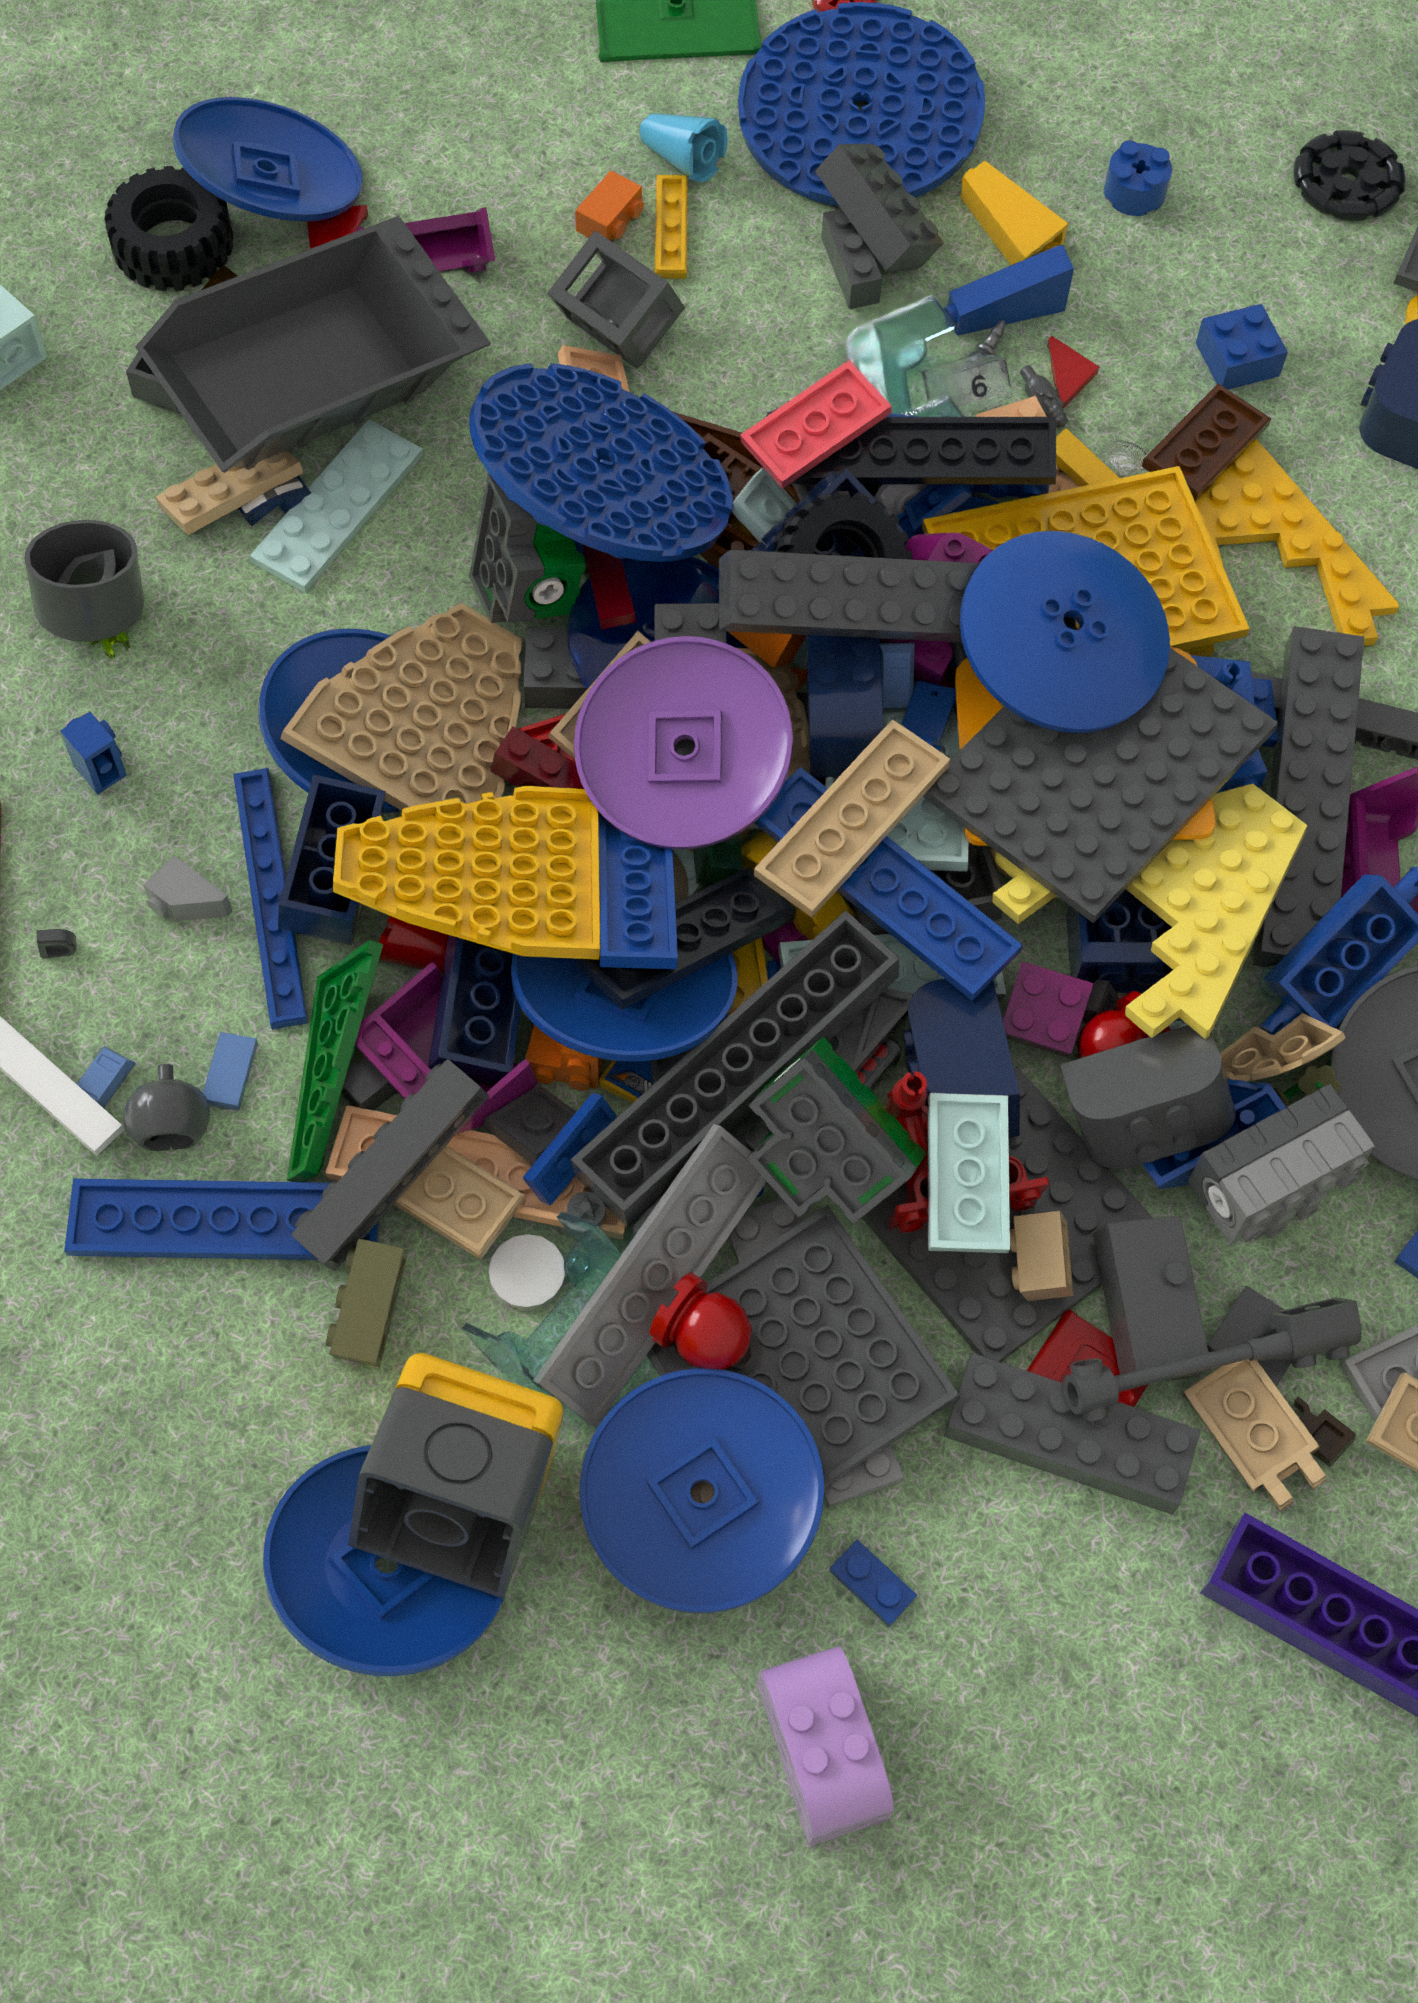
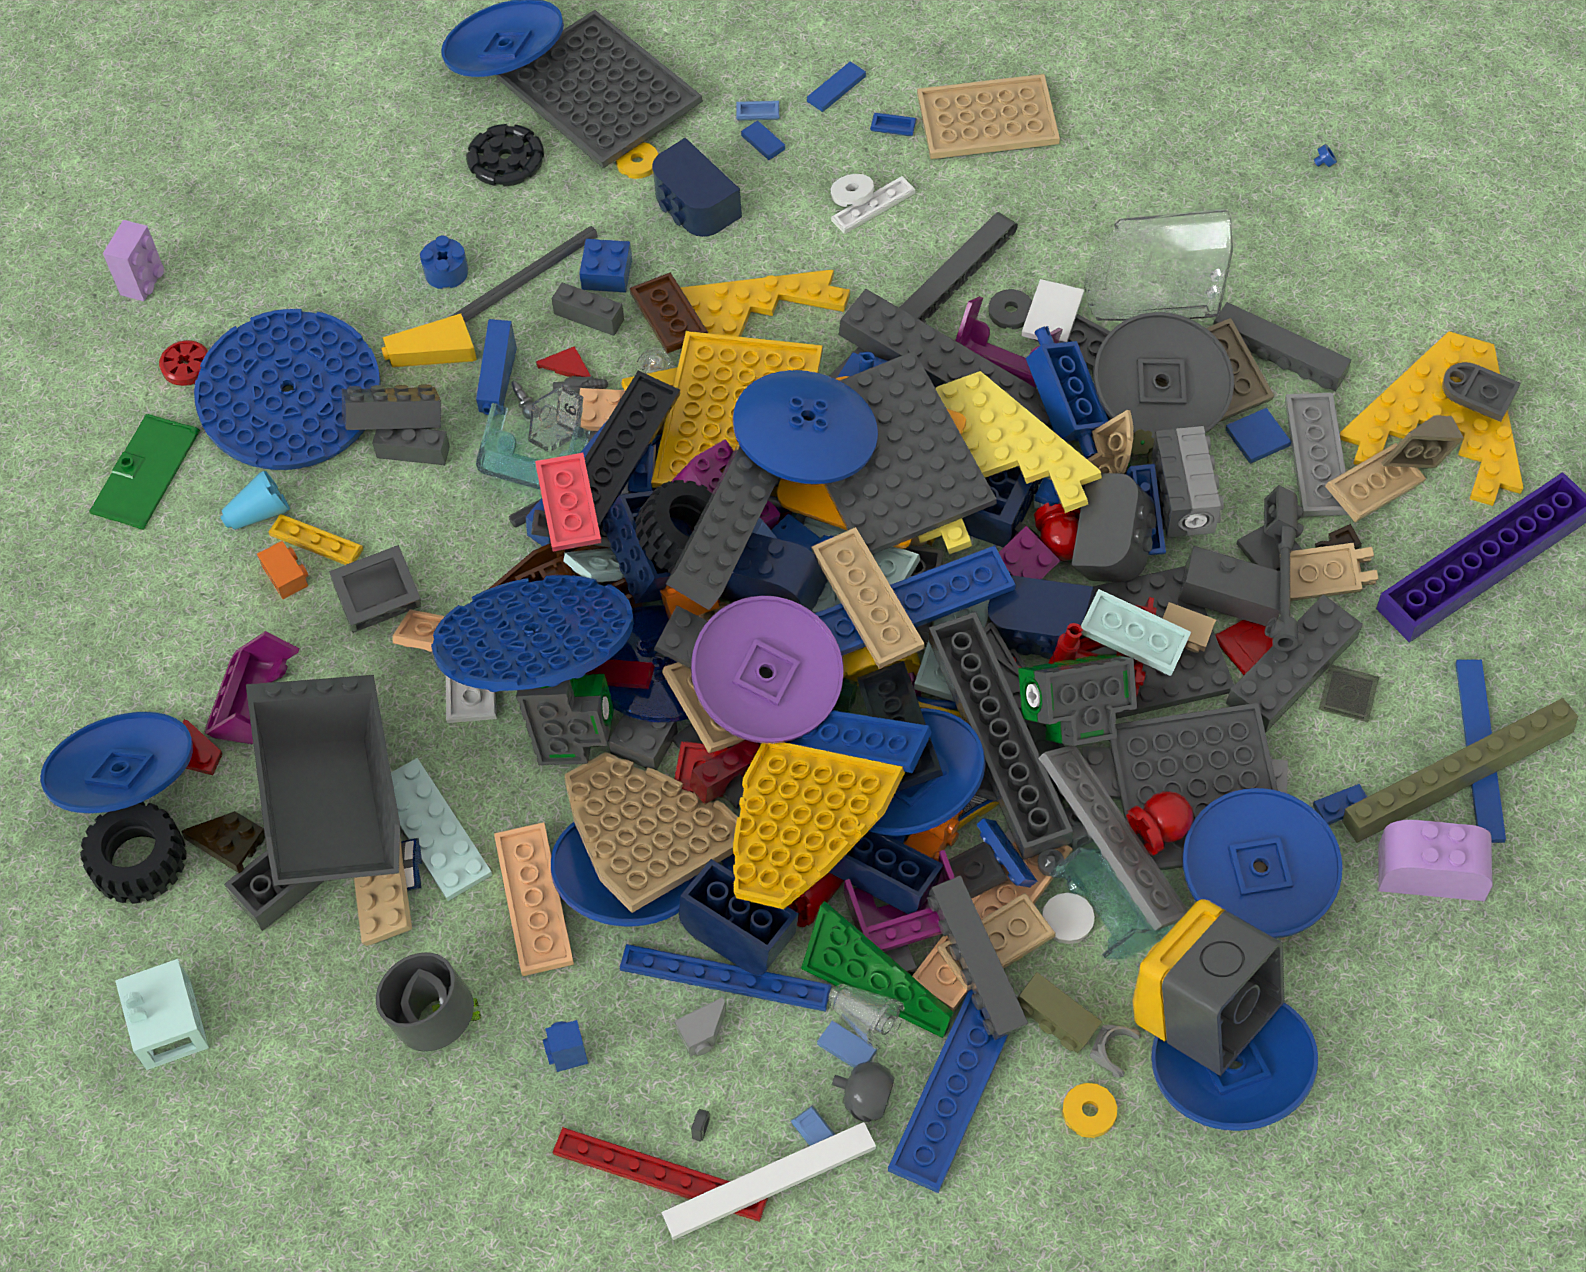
camera: 60 degrees left, 5 degrees down
(234, 673) = (533, 899): none -> light nougat plate
(256, 1423) = (1089, 1125): none -> yellow tile
(274, 1074) = (867, 1013): none -> clear cone
(346, 1381) = (1098, 1051): none -> light grey helmet
(1007, 1737) = (1460, 770): none -> olive brick
(1062, 1759) = (1476, 727): none -> blue tile
(1066, 1532) = (1348, 693): none -> clear smoke tile
(1161, 355) = (588, 309): none -> dark grey brick
(1177, 272) = (526, 274): none -> dark grey axle

